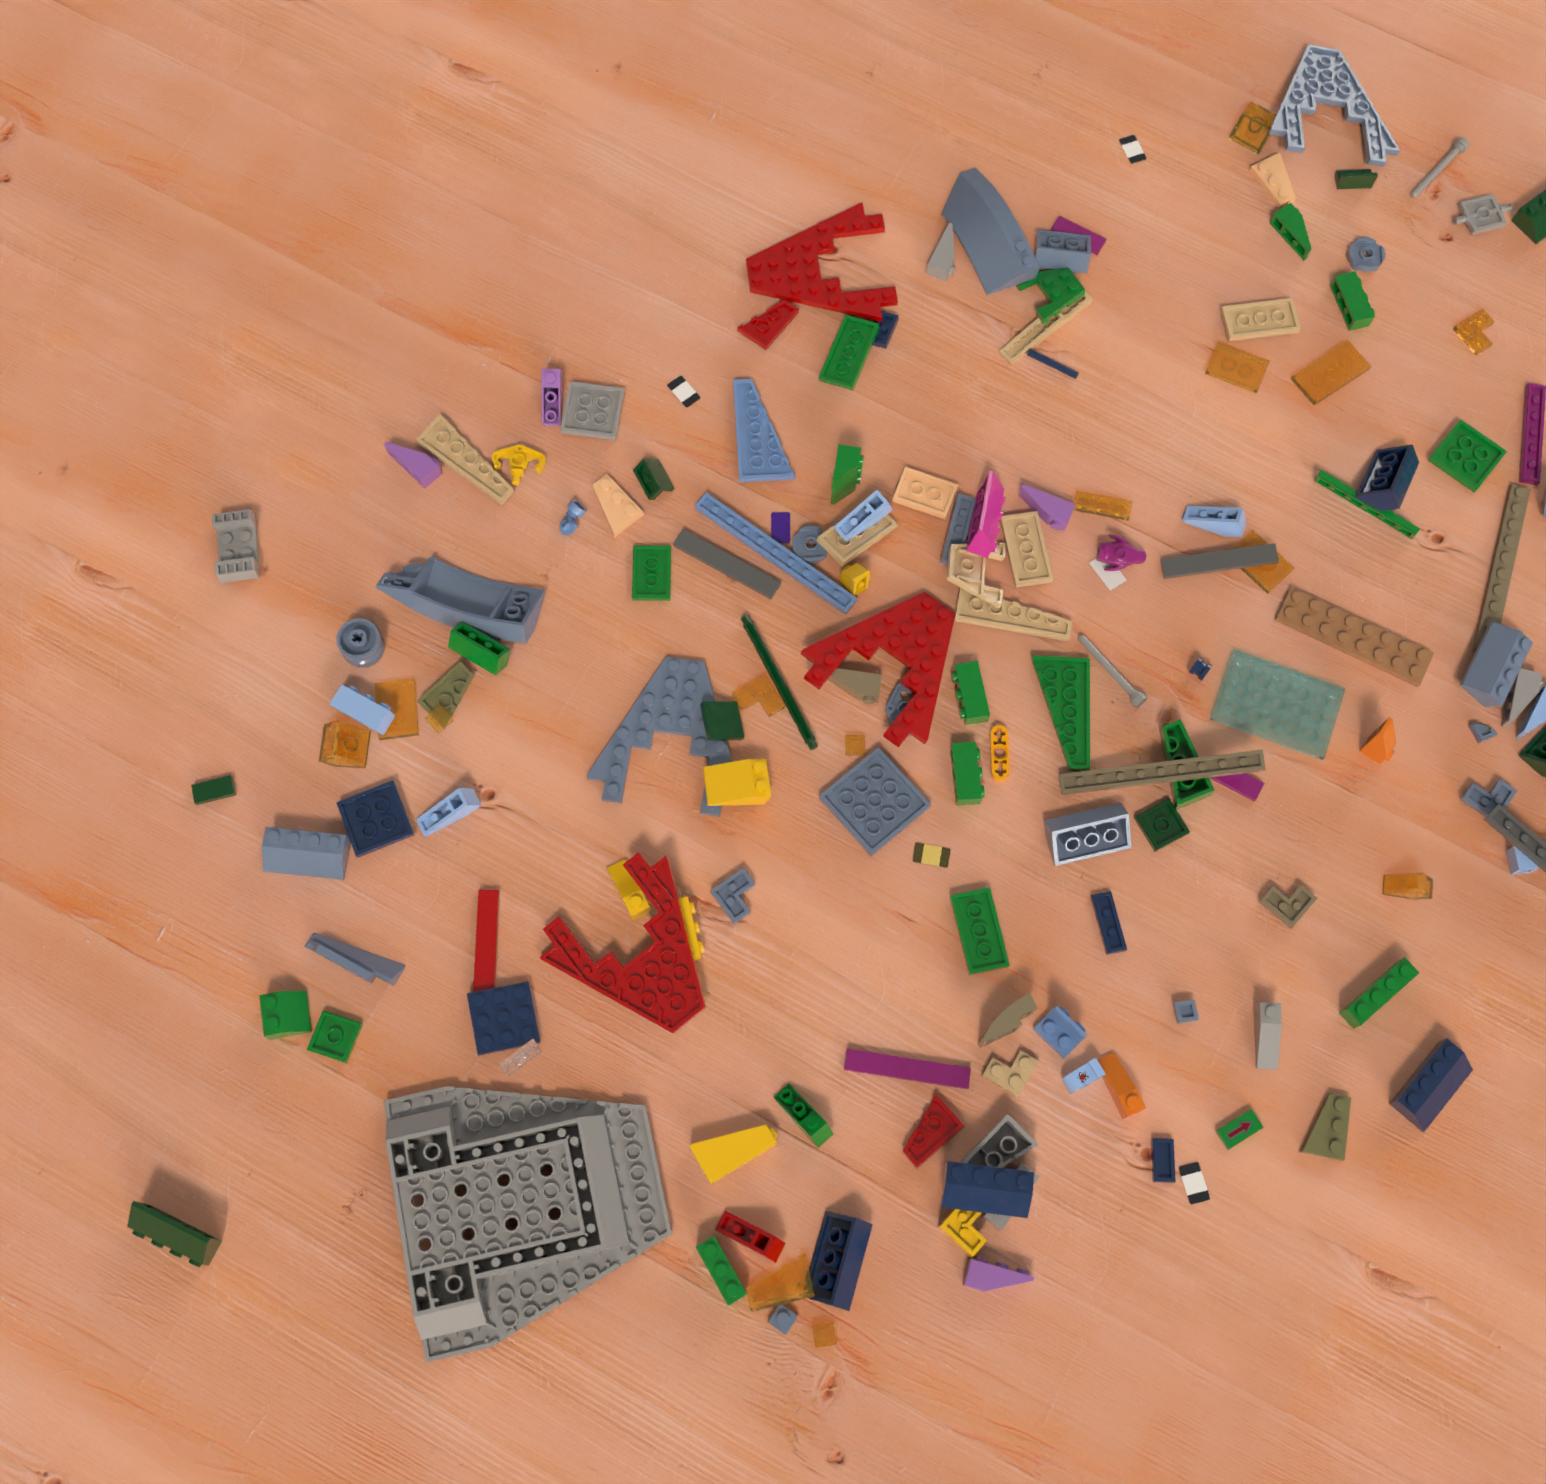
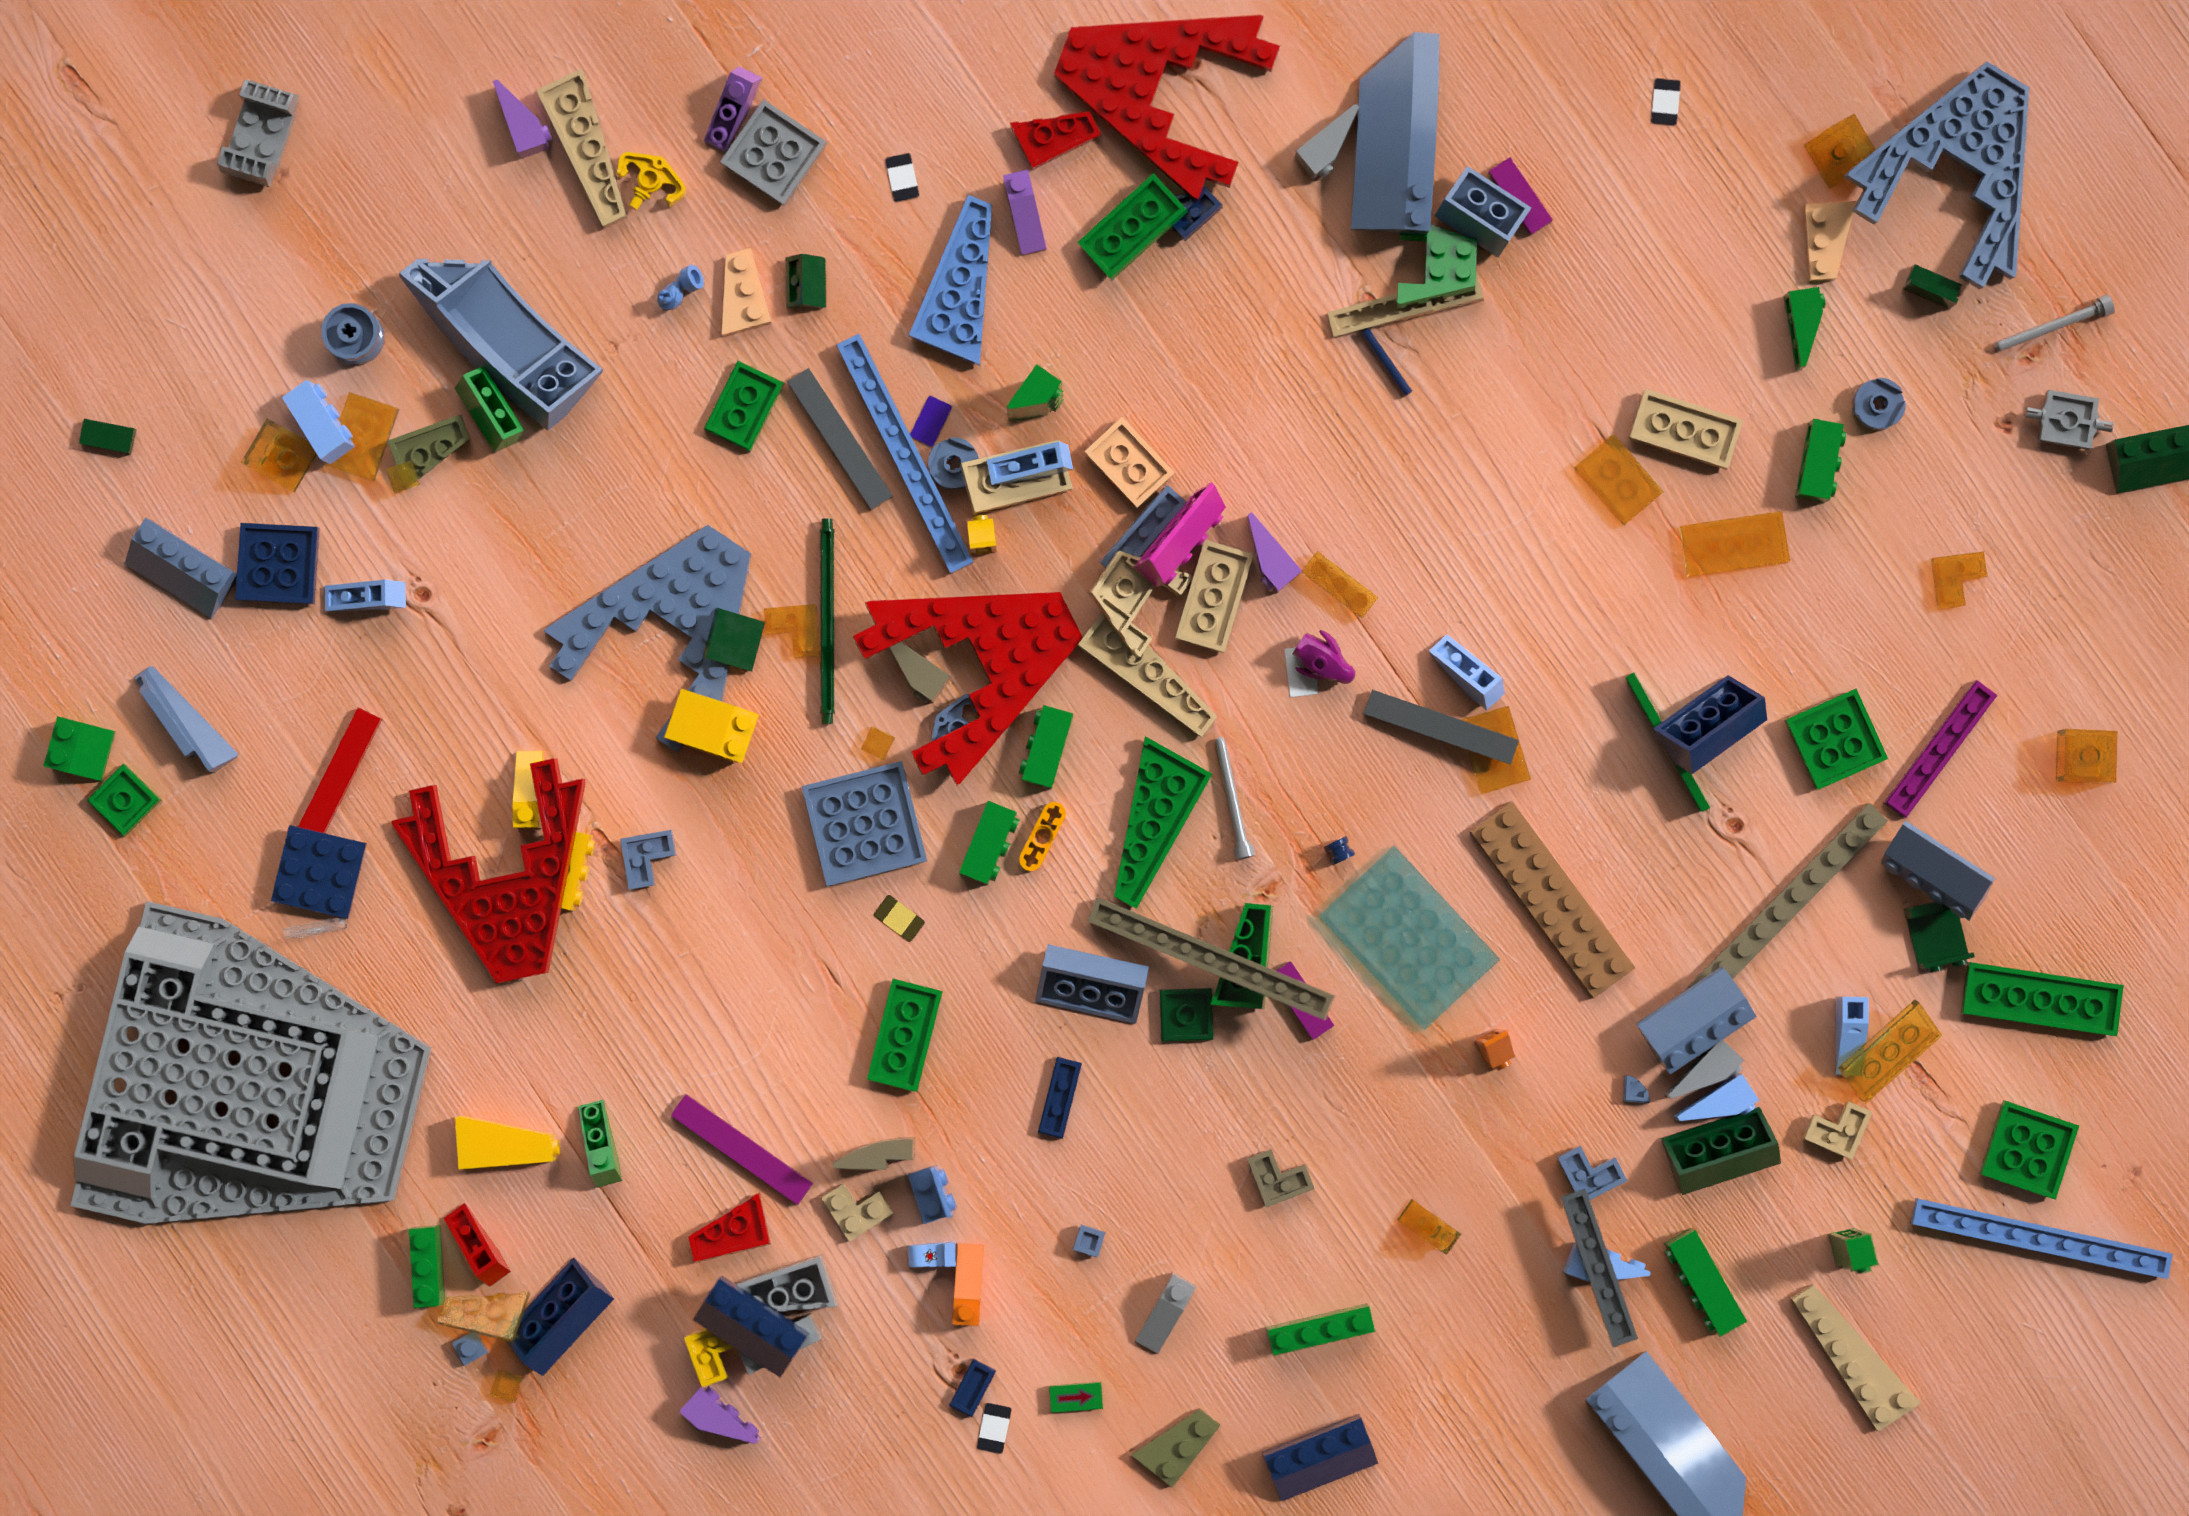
camera: 25 degrees right, 15 degrees up
(774, 374) = (1024, 212): none -> medium lavender slope

